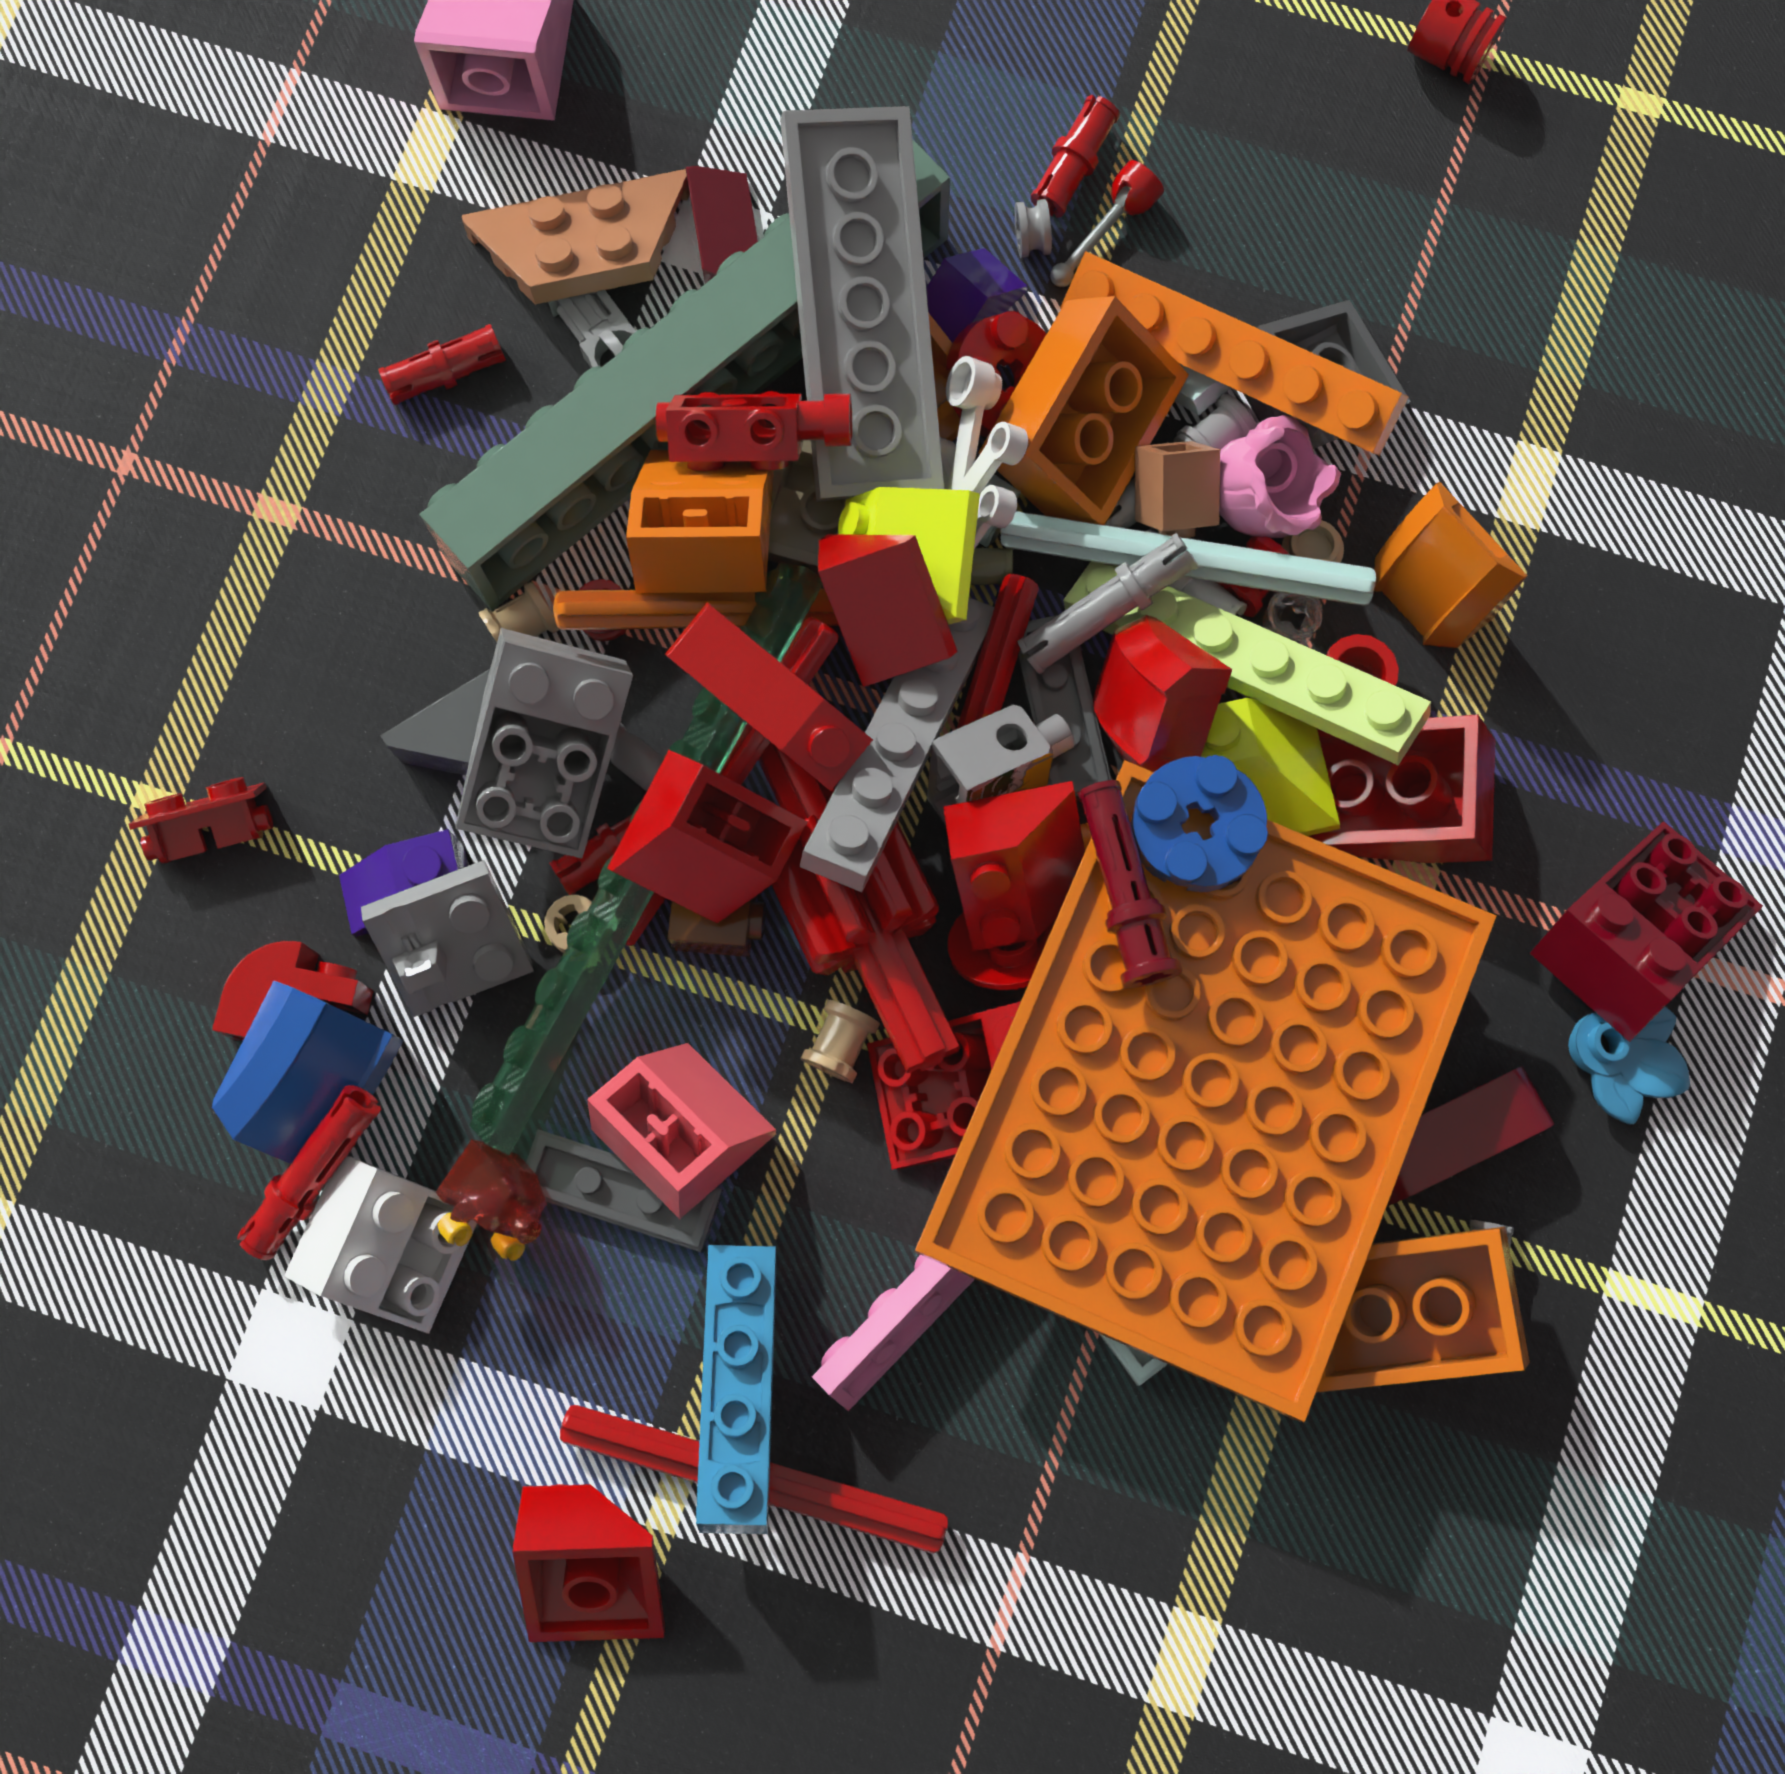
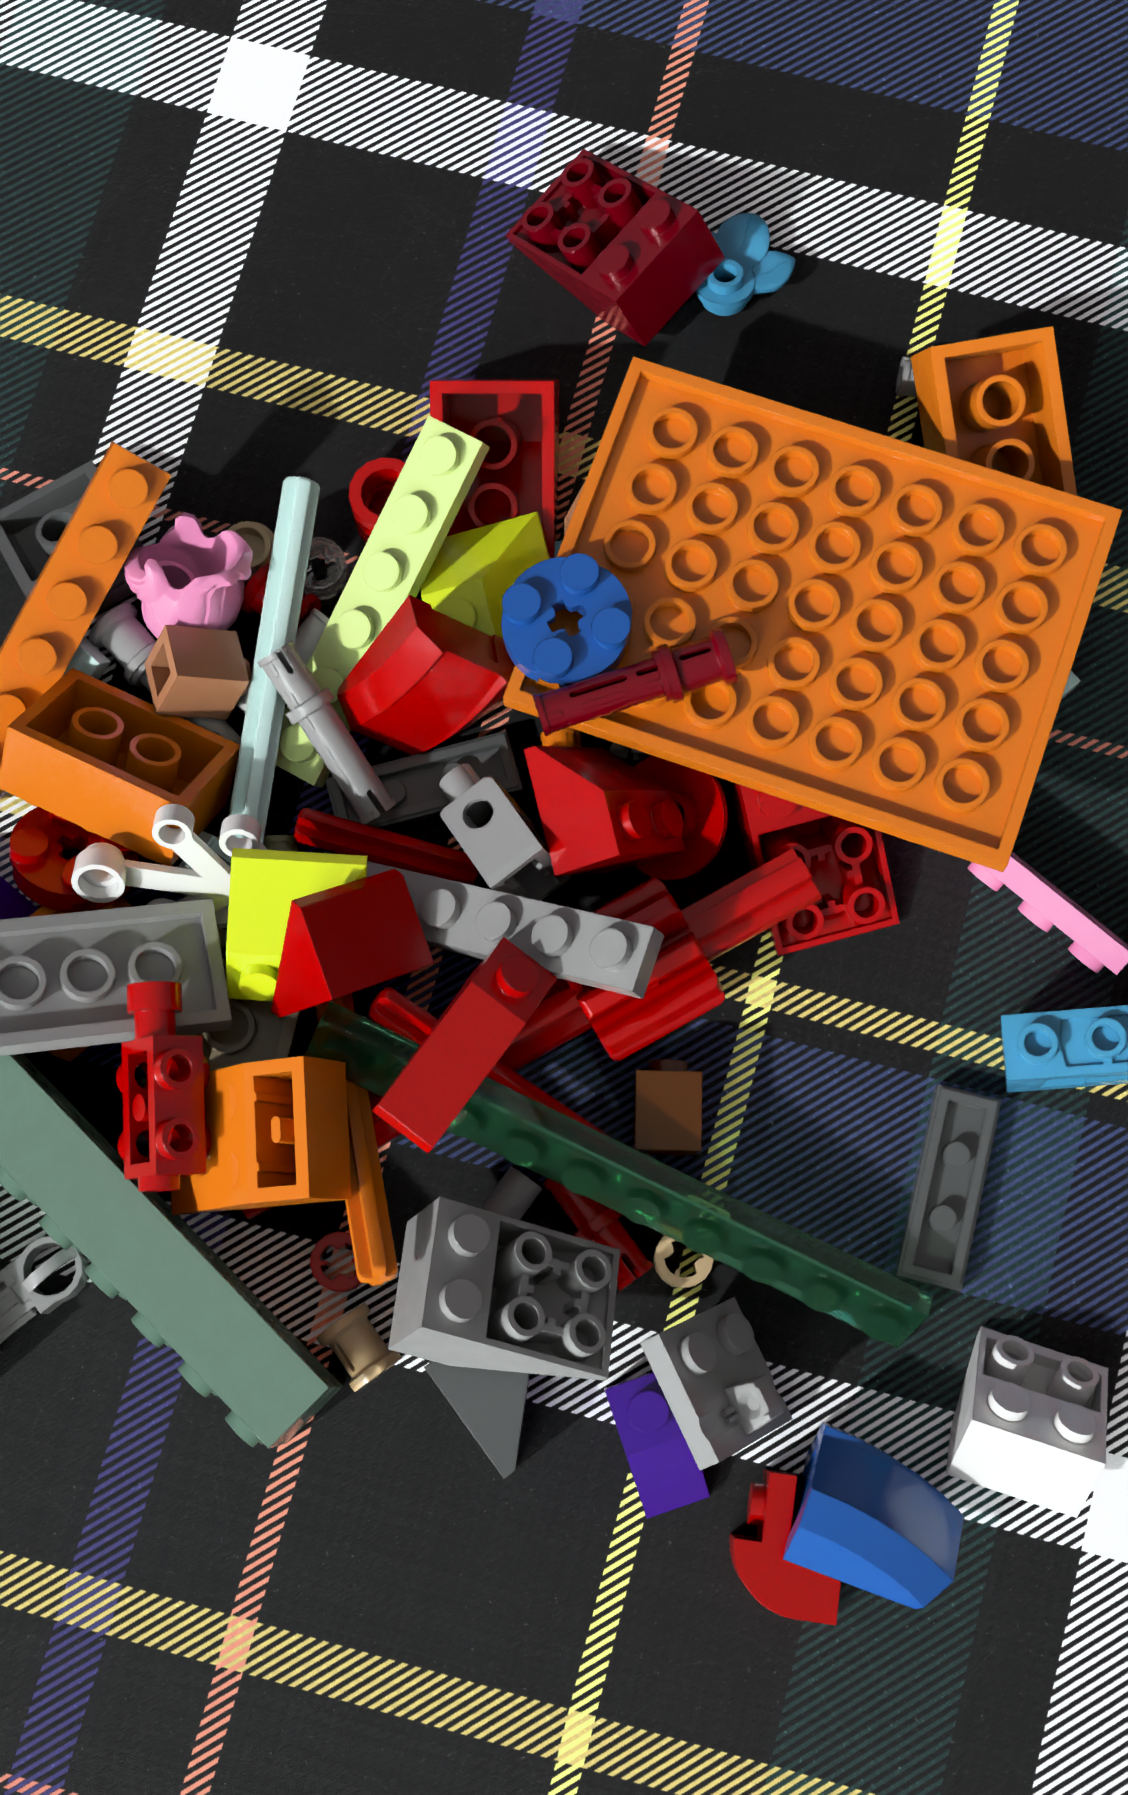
camera: 95 degrees left, 0 degrees up
(177, 825) = (606, 1708): red hinge -> none
(295, 1192) = (989, 1515): red pin -> none
(441, 364) = (63, 1468): red pin -> none
(496, 1194) = (975, 1304): clear red piece -> none
(677, 1125) = (886, 1124): coral slope -> none
(705, 840) = (610, 1102): red slope -> none
(840, 1041) = (783, 977): tan bush -> none
(1445, 571) = (274, 420): orange slope -> none
(1471, 1131) = (806, 375): dark red beam -> none

